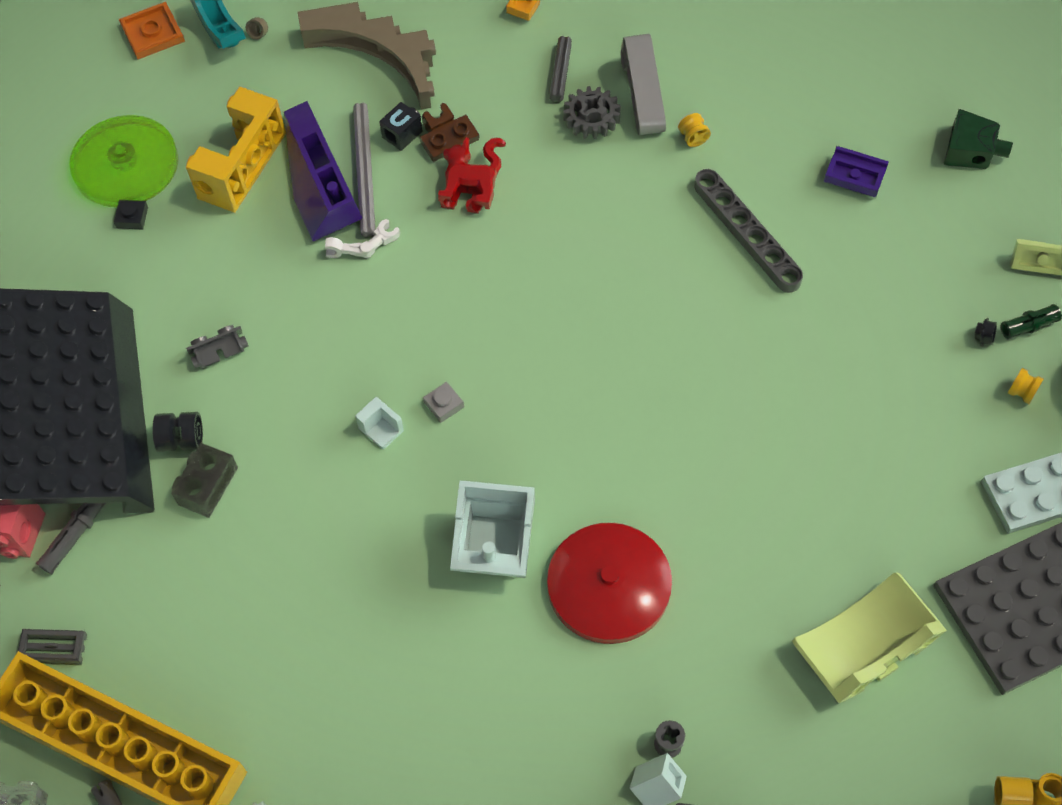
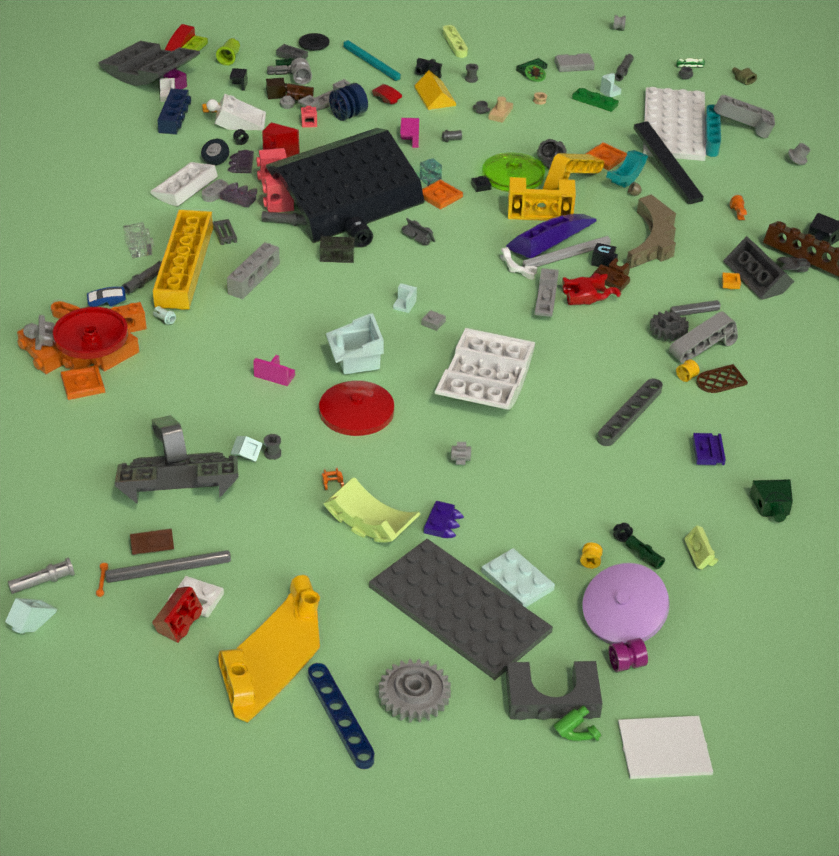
camera: 65 degrees right, 20 degrees down
(69, 271) = (430, 171): none -> clear light blue brick
(118, 92) = (548, 149): none -> dark grey hair
(127, 277) = (441, 194): none -> orange tile
(195, 88) = (565, 163): none -> yellow beam
(201, 631) = (253, 270): none -> light grey brick
(454, 233) = (546, 292): none -> light grey slope
(477, 679) = (273, 371): none -> dark pink panel
(610, 375) = (487, 369): none -> white slope
(717, 79) = (742, 382): none -> reddish brown window
(762, 681) = (339, 477): none -> orange piece
(775, 472) = (461, 453): none -> light grey gear
(894, 548) = (442, 520): none -> dark purple plate

